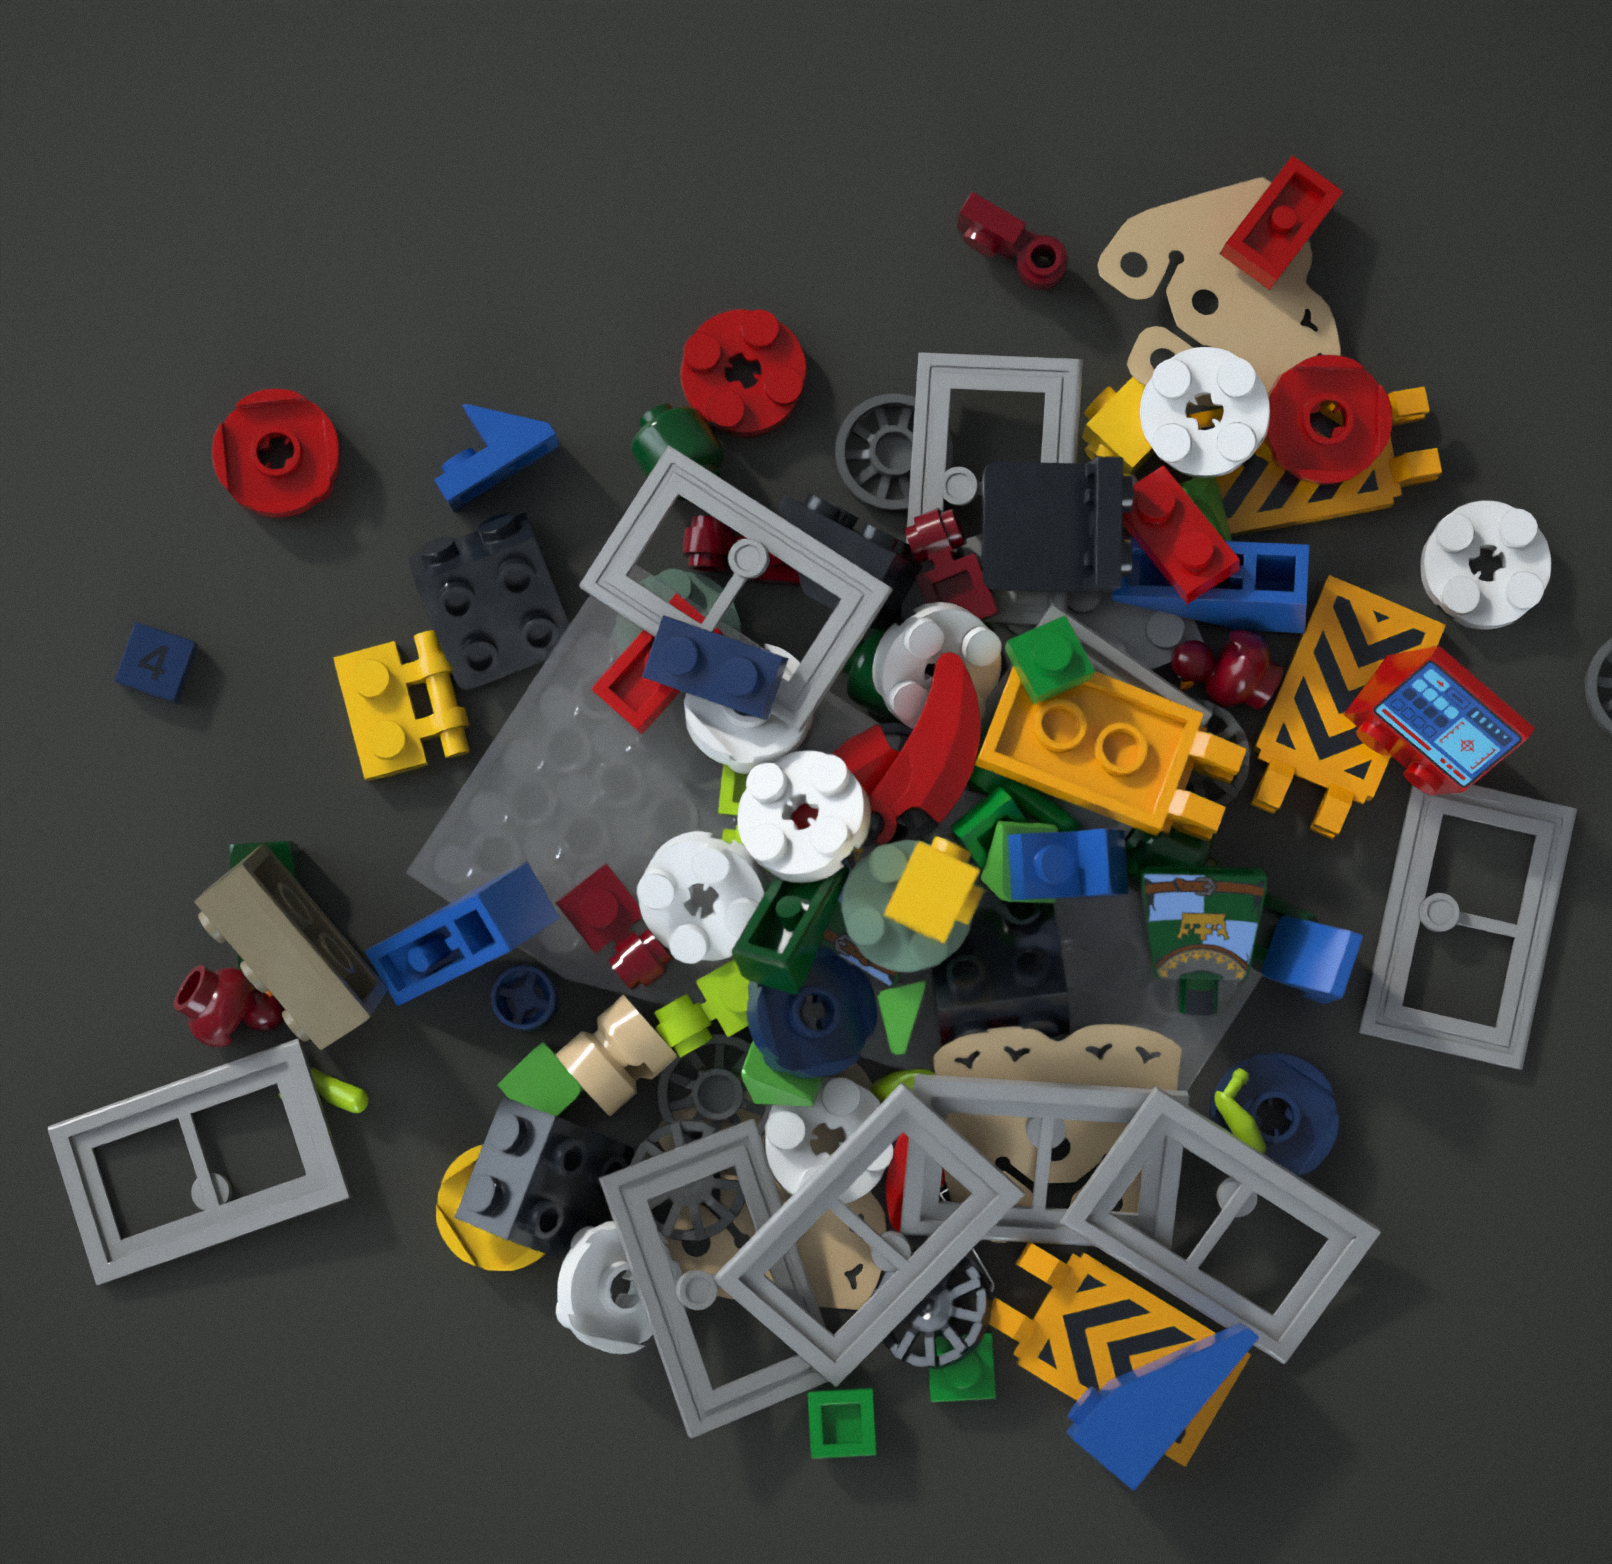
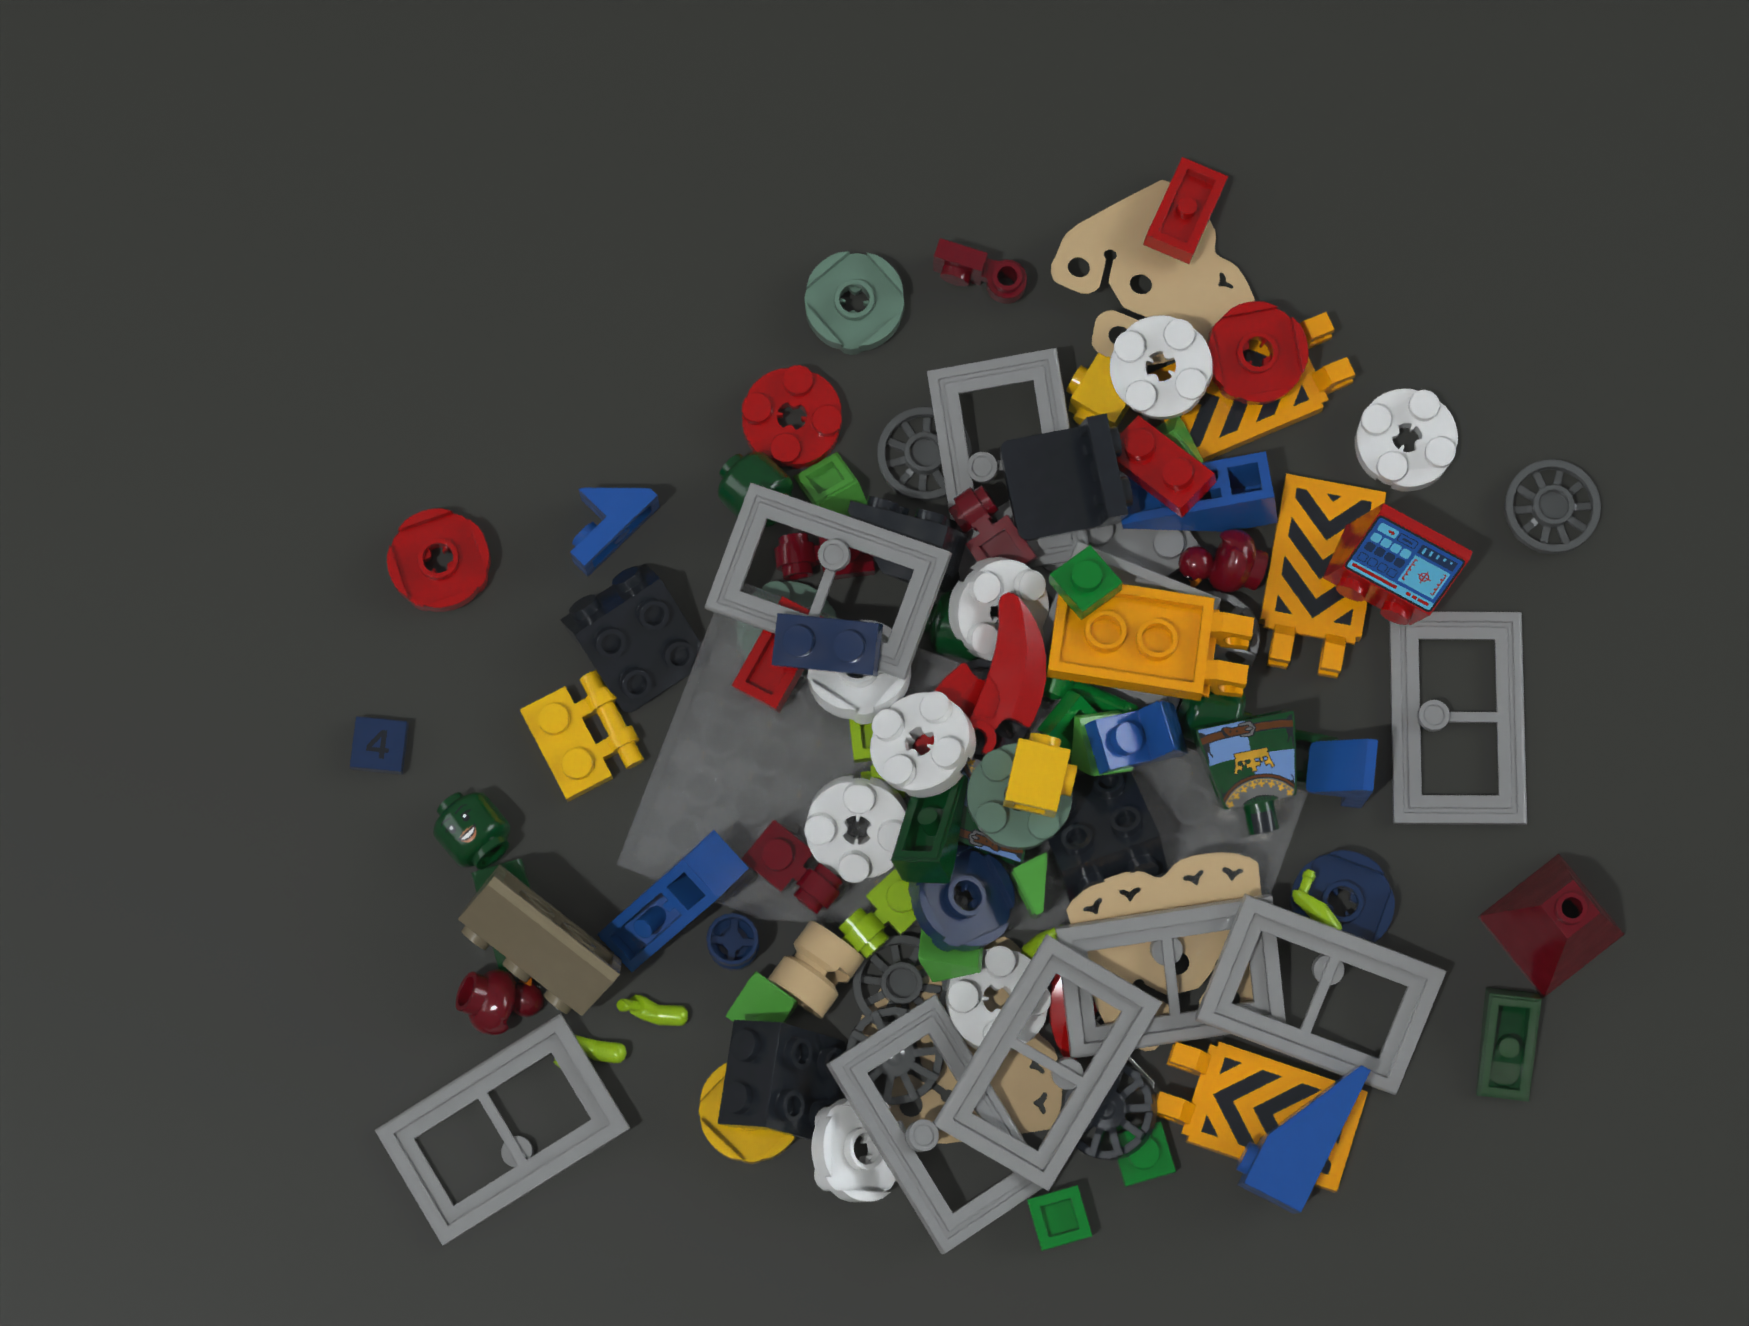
camera: 15 degrees left, 5 degrees down
(241, 792) = (471, 830): none -> dark green head
(411, 1061) = (652, 1012): none -> lime piece
(770, 468) = (830, 485): none -> bright green slope
(862, 212) = (855, 273): none -> sand green plate
(1435, 1332) = (1508, 1043): none -> dark green slope
(1522, 1200) = (1550, 925): none -> dark red slope

